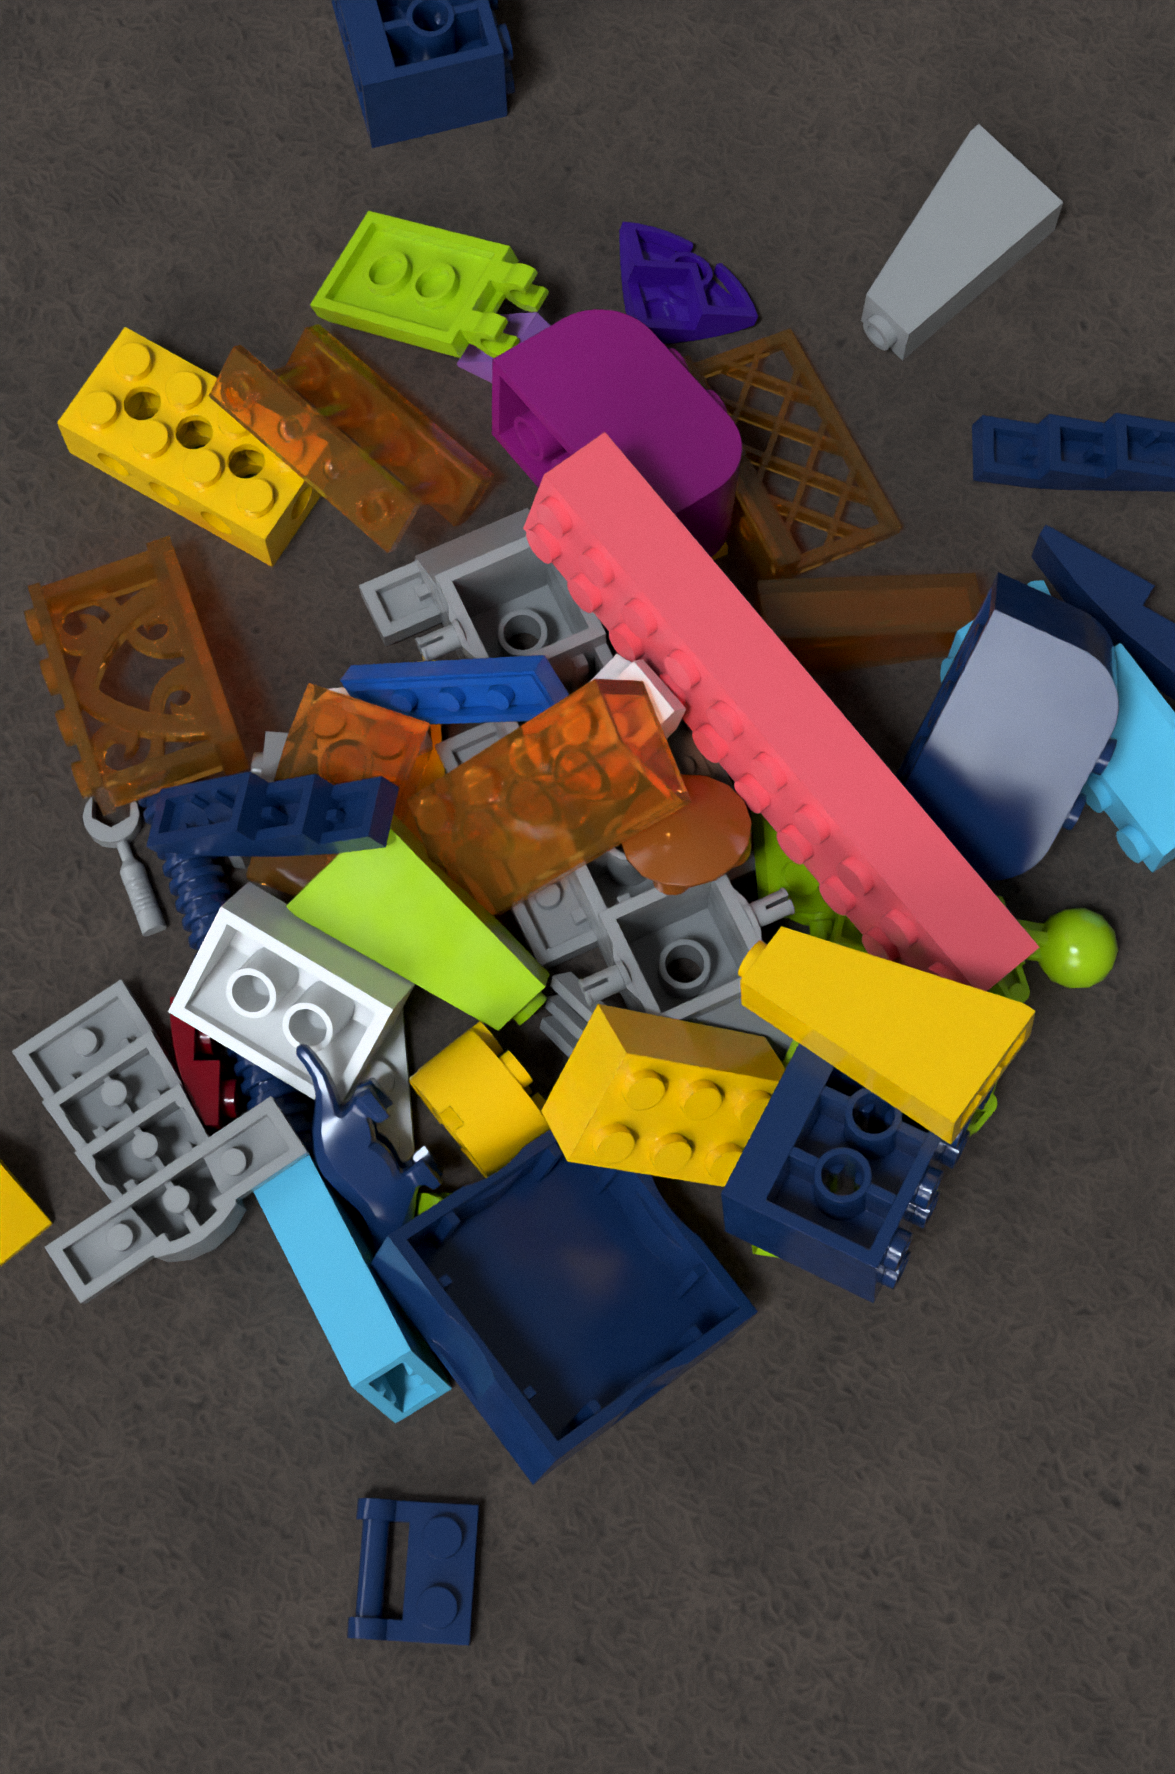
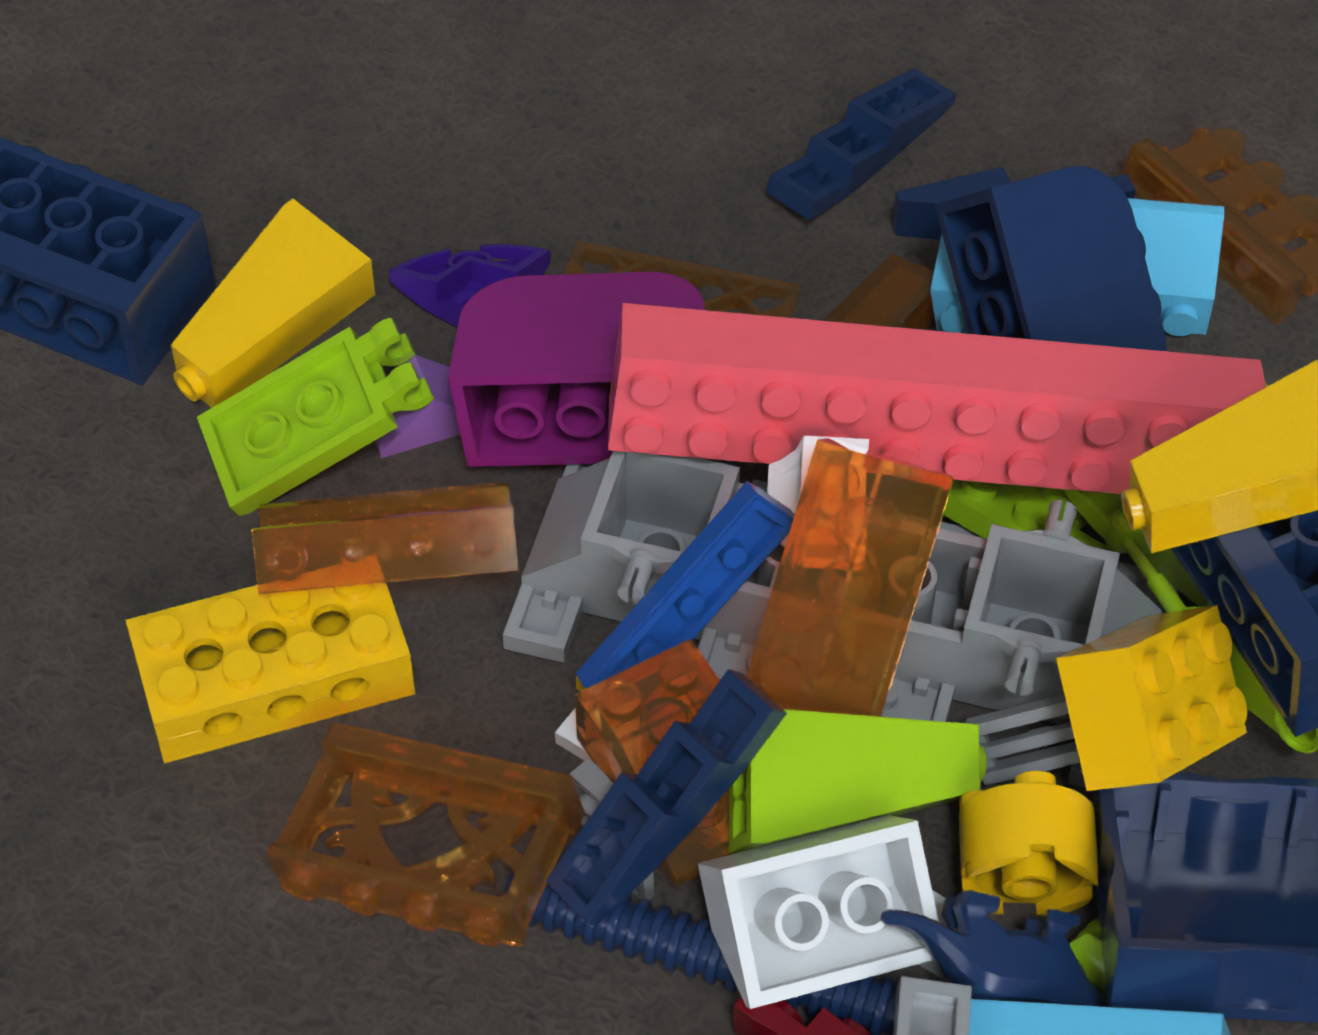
camera: 50 degrees left, 20 degrees down
(132, 871) = (578, 976): light grey piece -> none
(509, 169) = (271, 305): none -> yellow slope
(695, 841) = (972, 529): dark orange dish -> none
(961, 241) = (620, 101): light grey slope -> none

